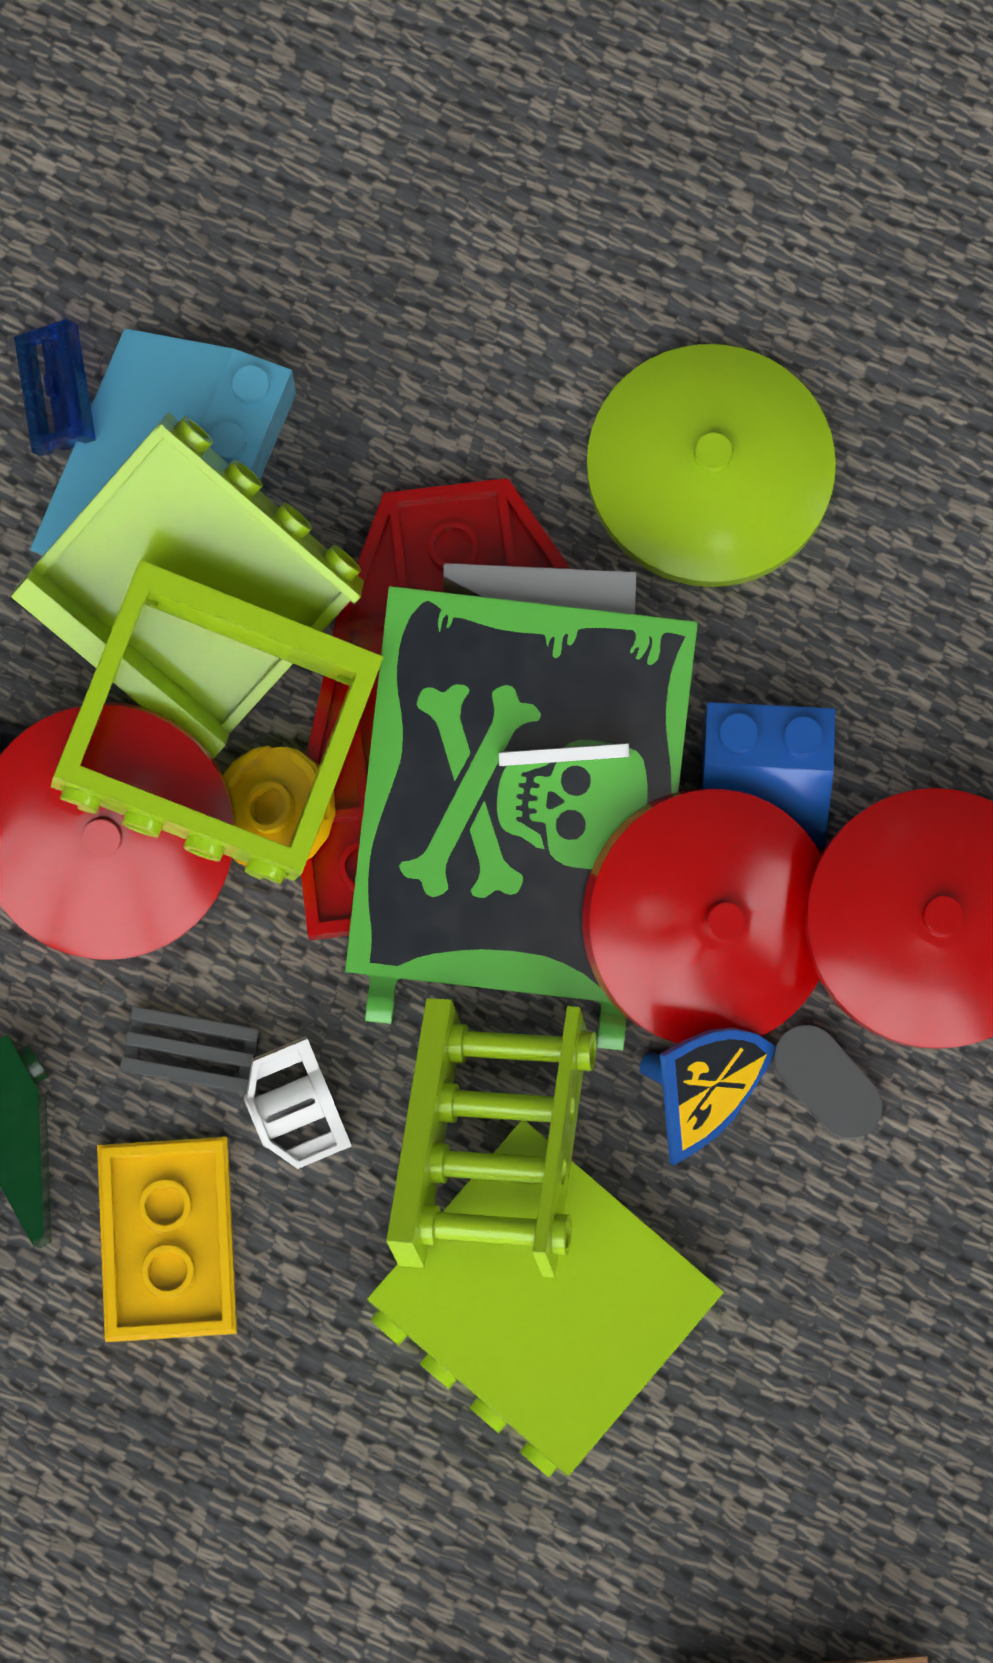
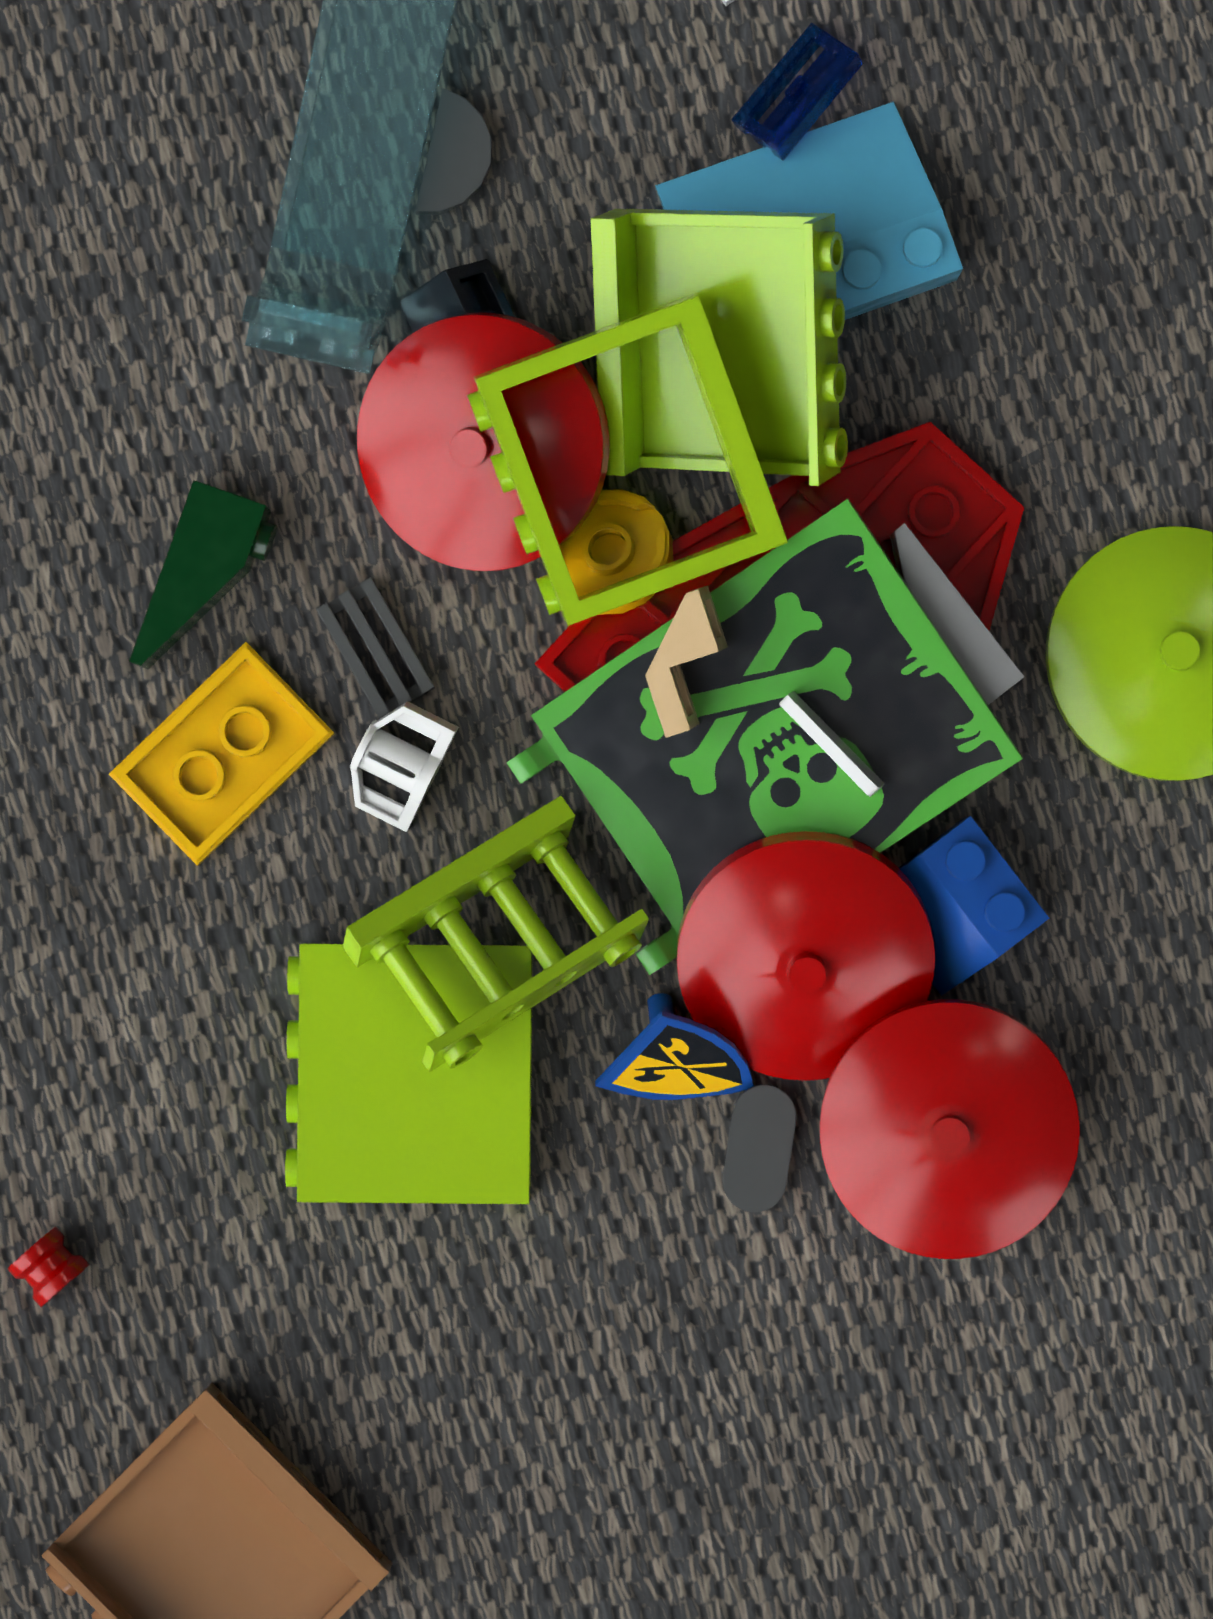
camera: 50 degrees right, 10 degrees up
(391, 791) = (690, 636): none -> tan slope

